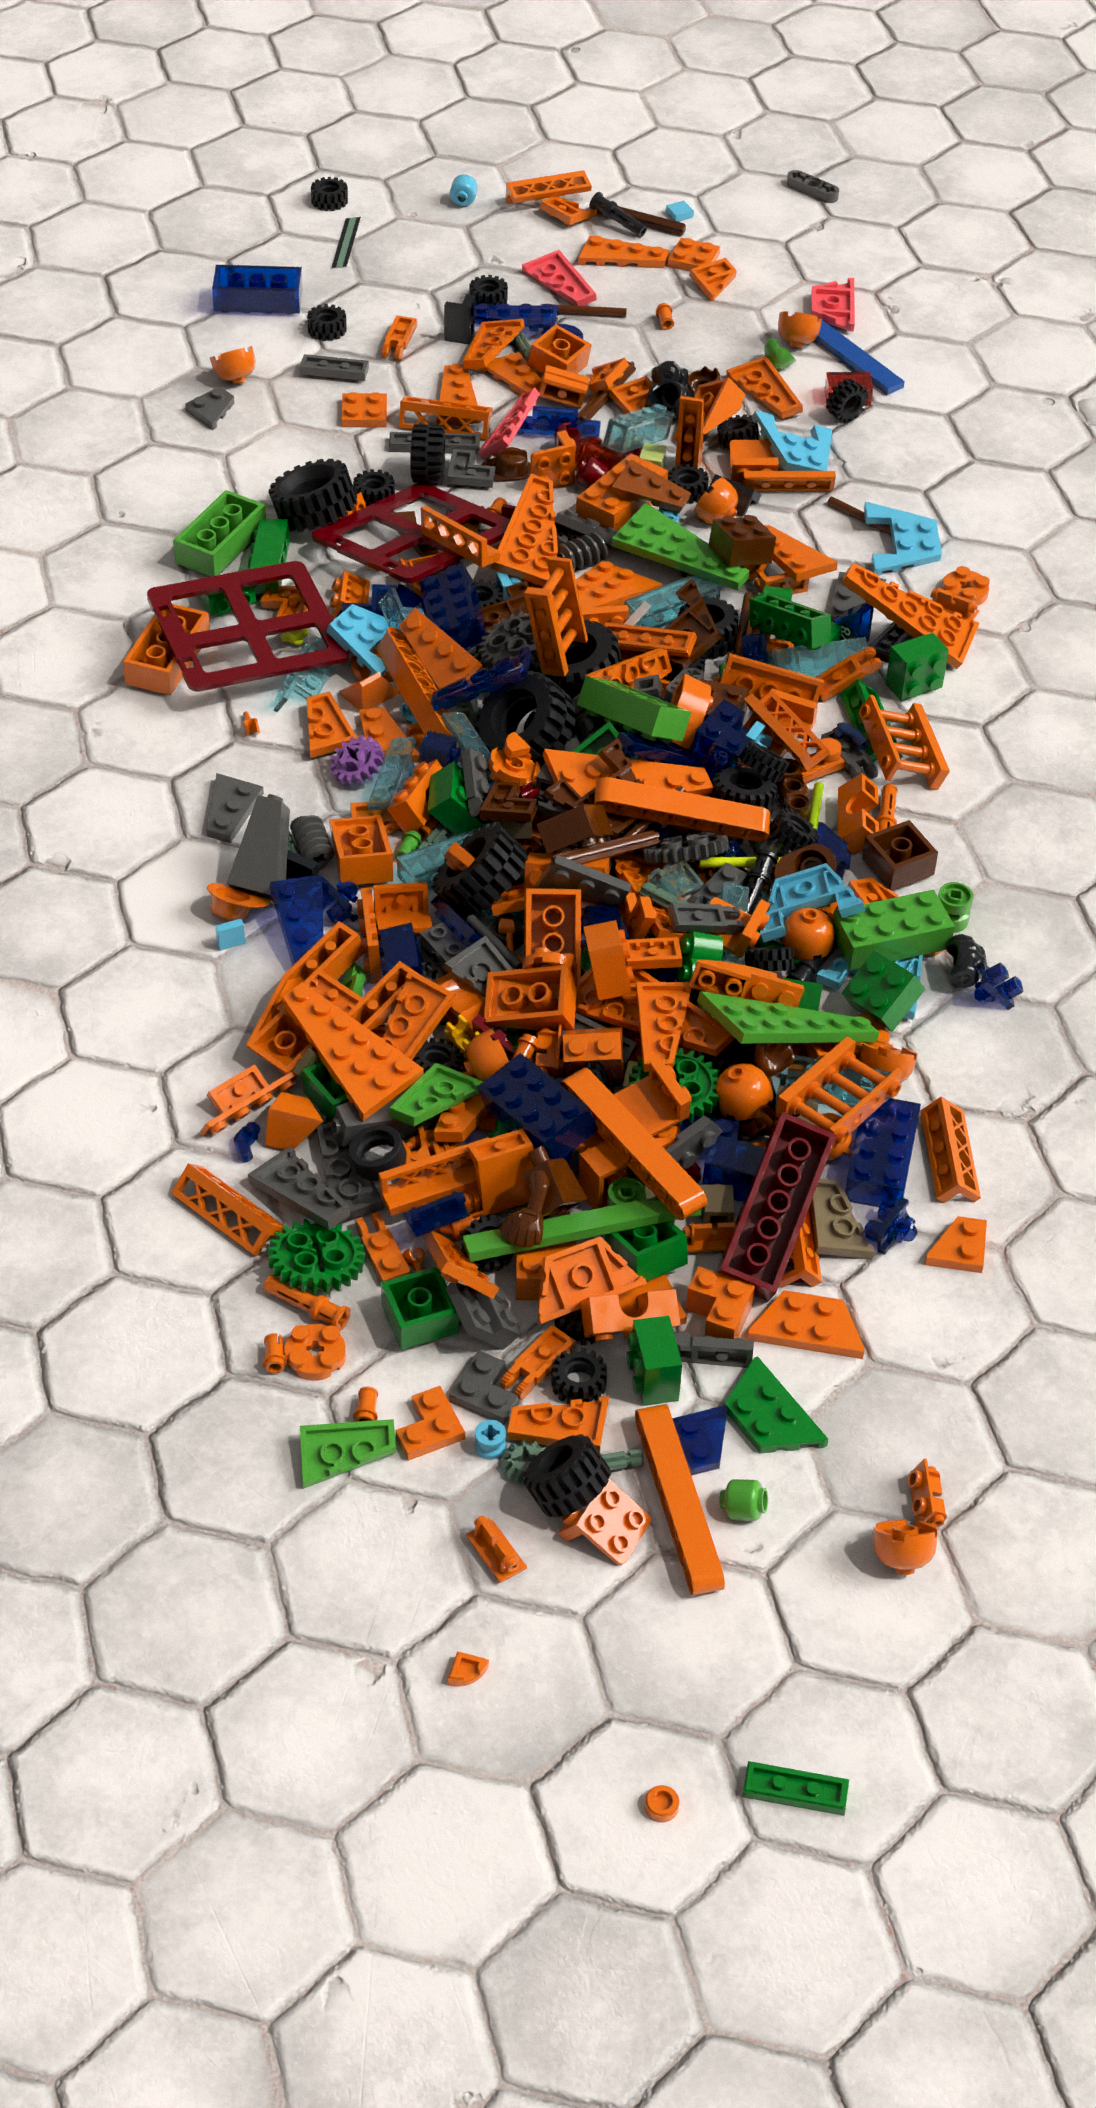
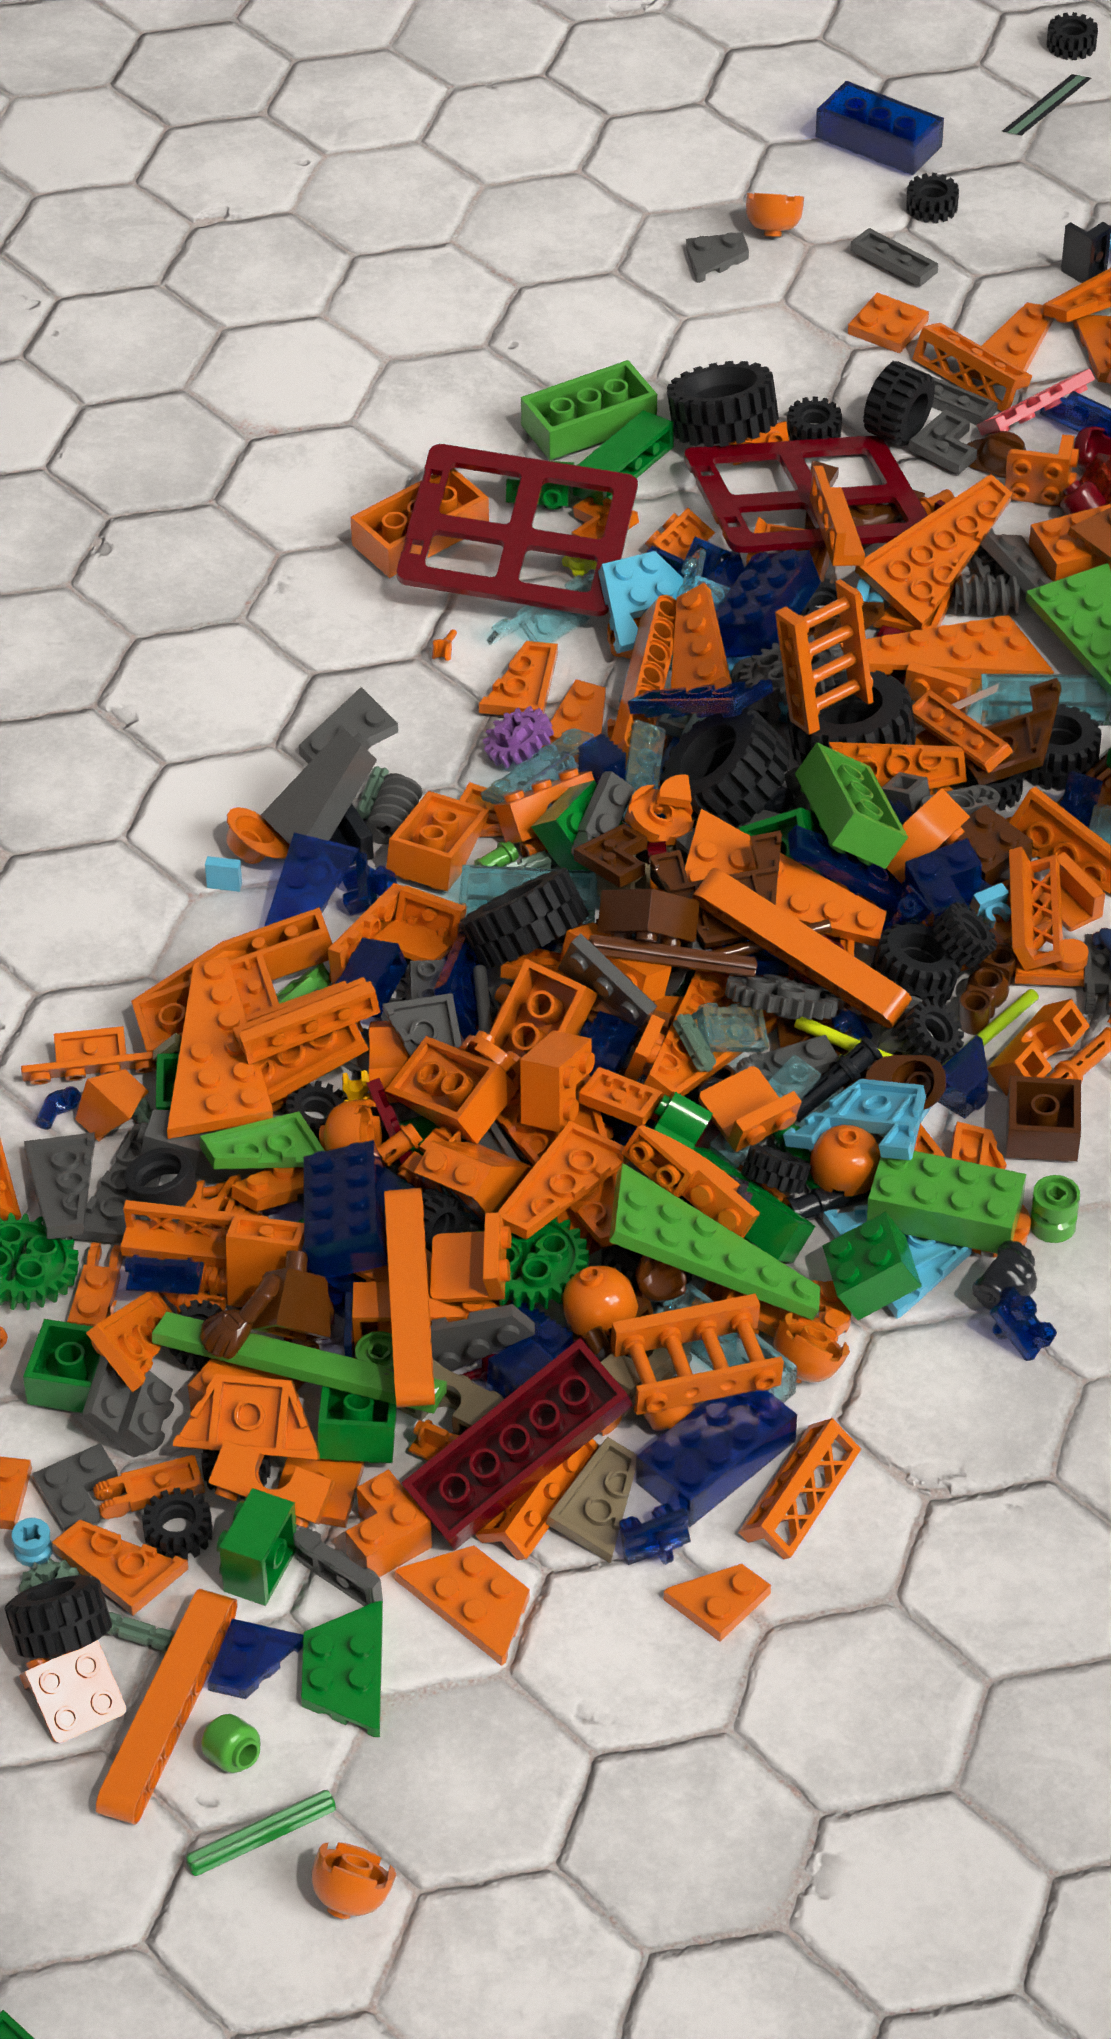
camera: 35 degrees right, 0 degrees up
(369, 692) = (602, 664): orange slope -> none
(399, 336) = (1003, 246): orange hinge -> none
(404, 1000) = (307, 1020): none -> orange fence
(458, 858) = (498, 888): orange slope -> none
(596, 1193) = (348, 1328): none -> clear blue piece
(705, 918) = (712, 1084): dark grey hinge -> none
(810, 1548) = (260, 1832): none -> axle
(924, 1484) = (441, 1832): orange hinge -> none

